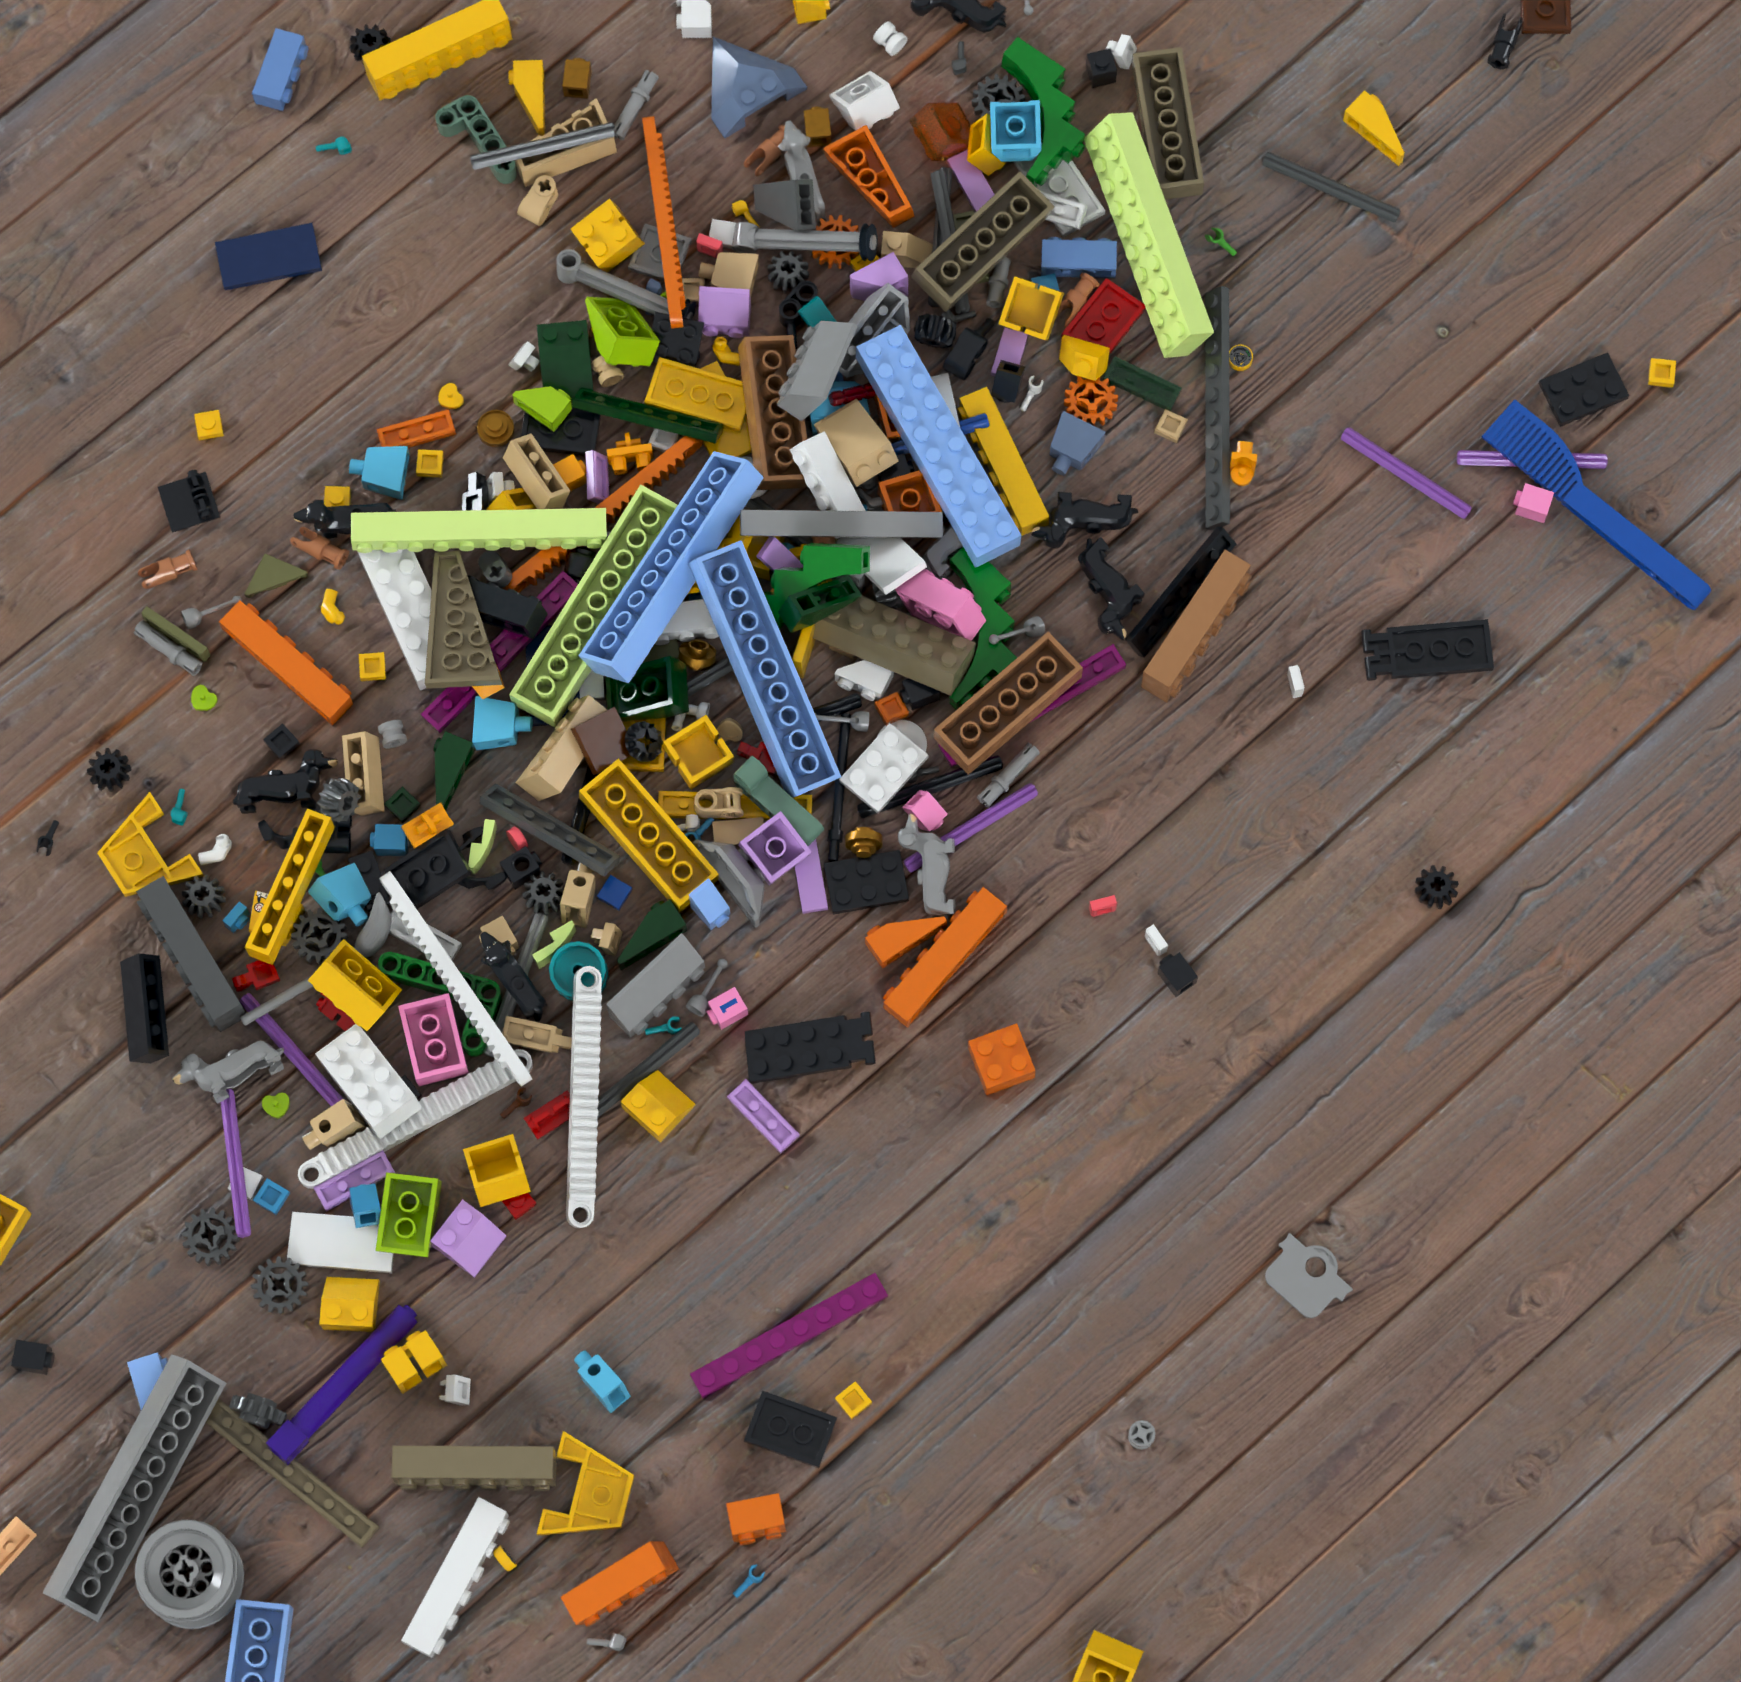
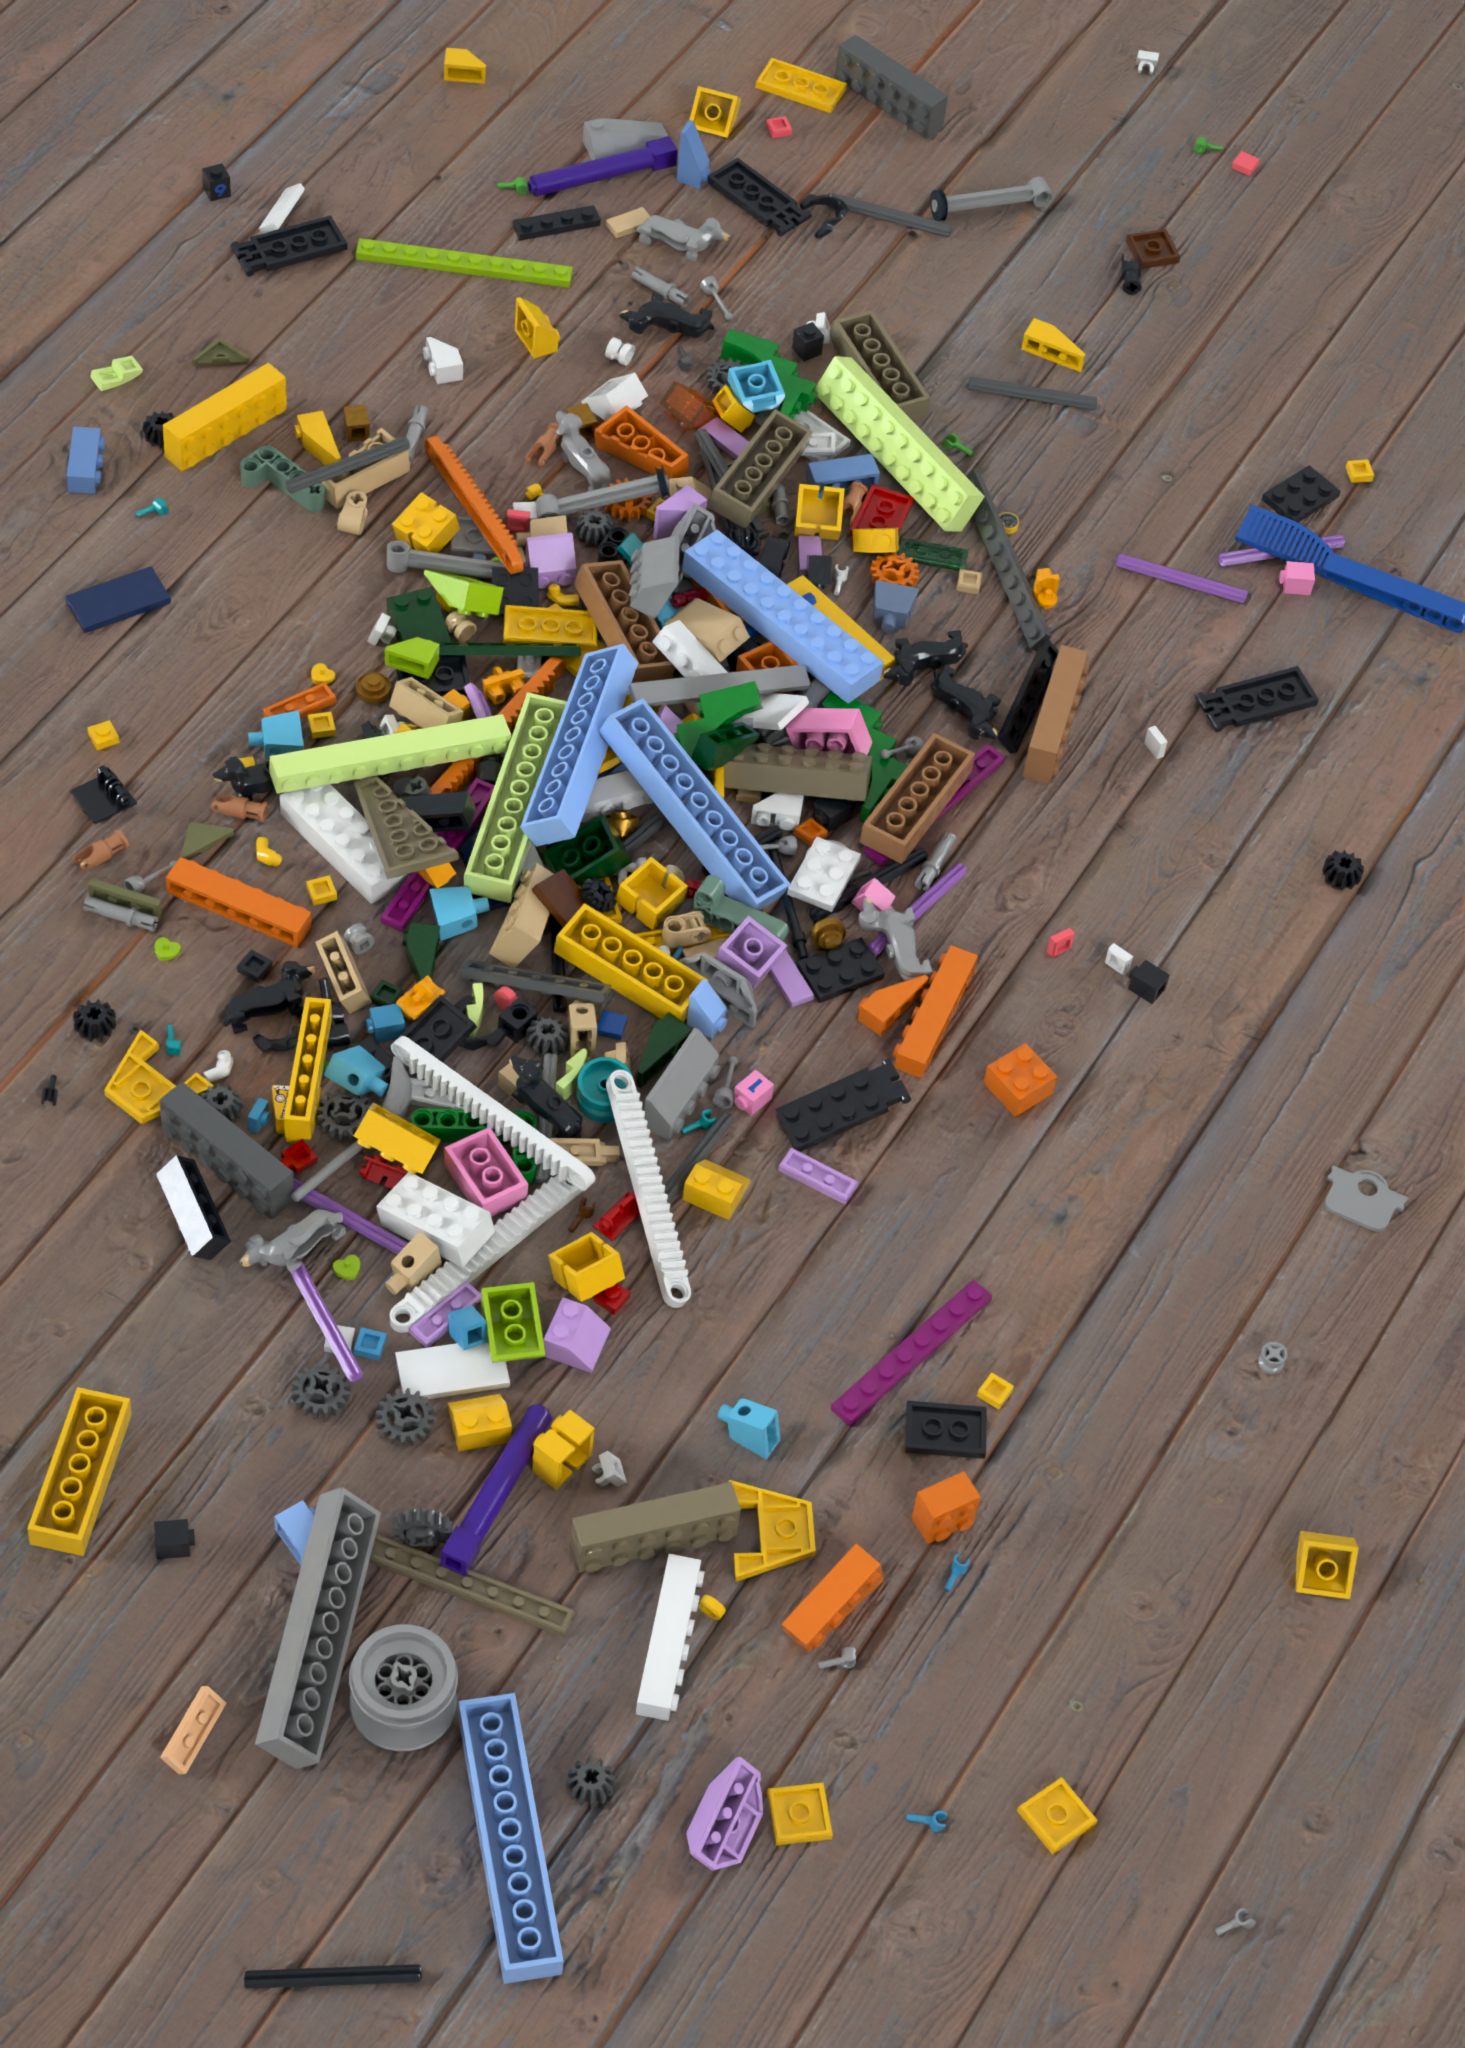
camera: 25 degrees left, 20 degrees down
(339, 799) = (333, 984): dark grey gear -> none
(745, 84) = (504, 404): sand blue wedge -> none
(787, 202) = (577, 470): dark grey slope -> none

